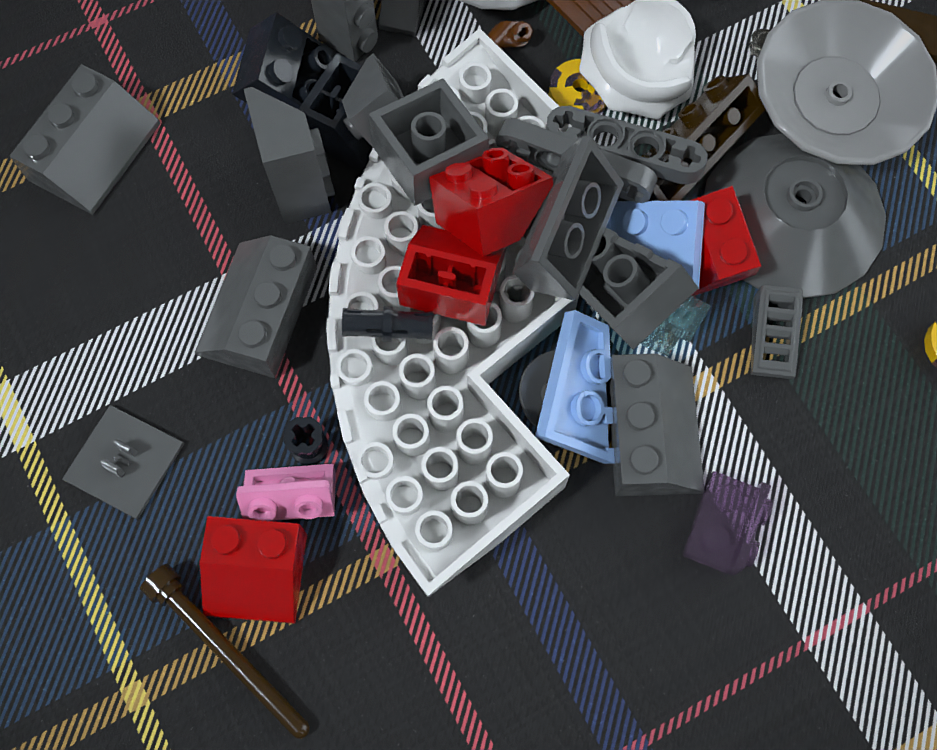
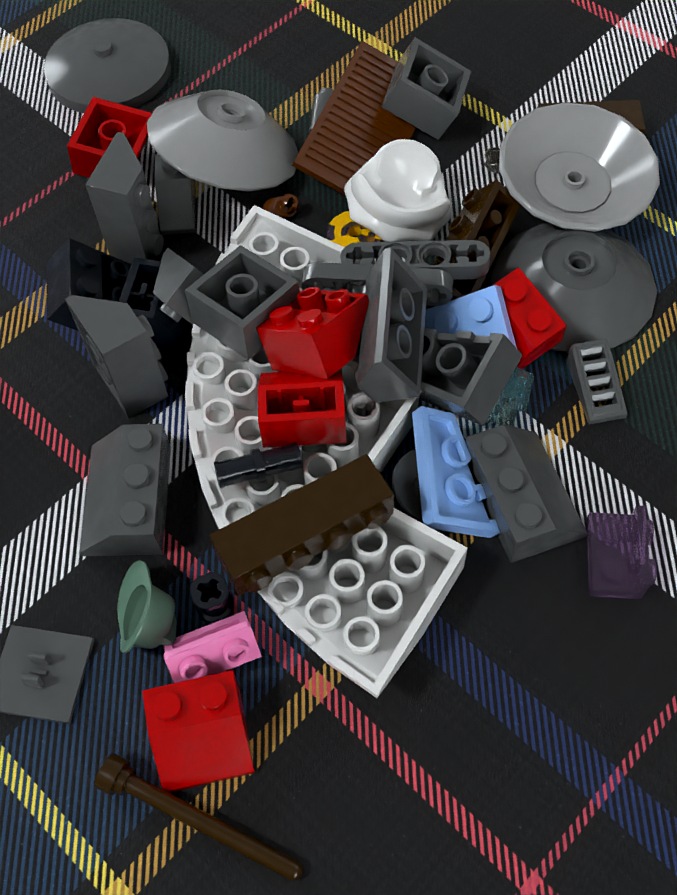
camera: 15 degrees left, 10 degrees down
(237, 435) = (144, 611): none -> sand green piece
(409, 403) = (303, 525): none -> dark brown brick

